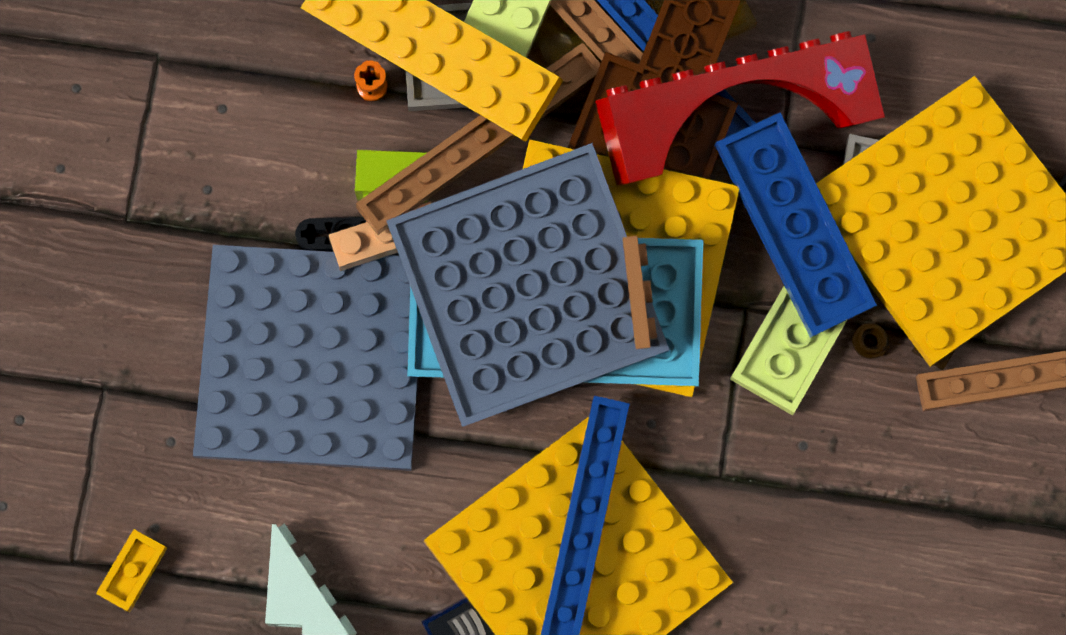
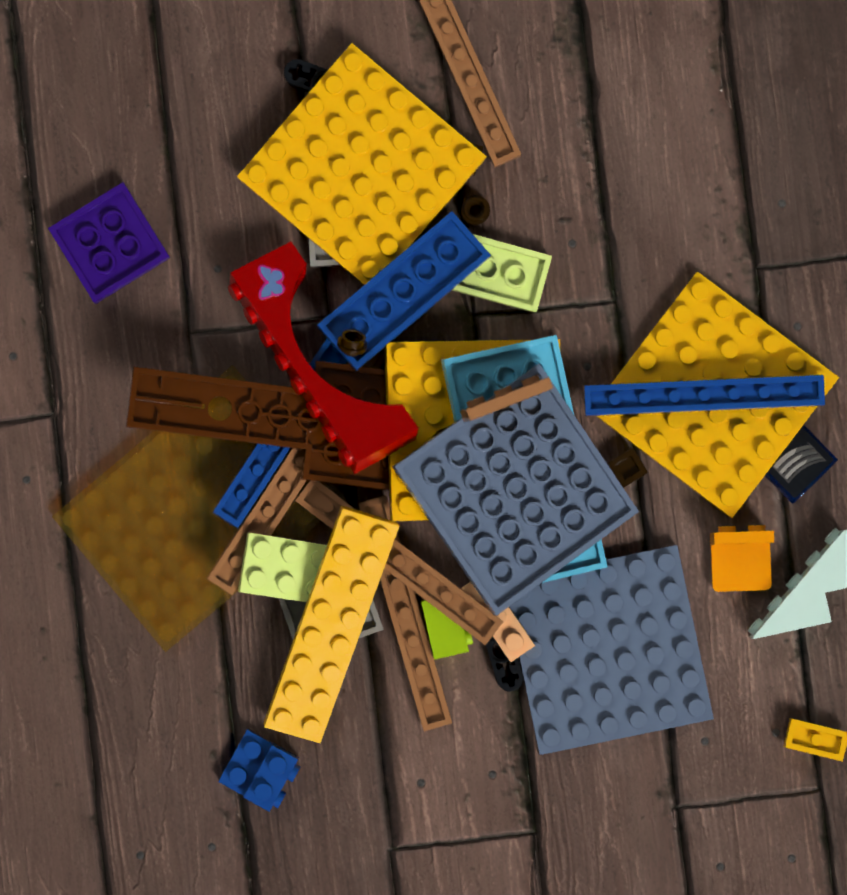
camera: 100 degrees left, 10 degrees up
(345, 137) = (412, 638): none -> medium nougat plate
(362, 76) = (363, 673): orange bush -> none
(372, 540) = (741, 559): none -> light orange bracket
(518, 435) = (627, 467): none -> dark brown plate
(749, 141) = (352, 343): none -> dark brown plate

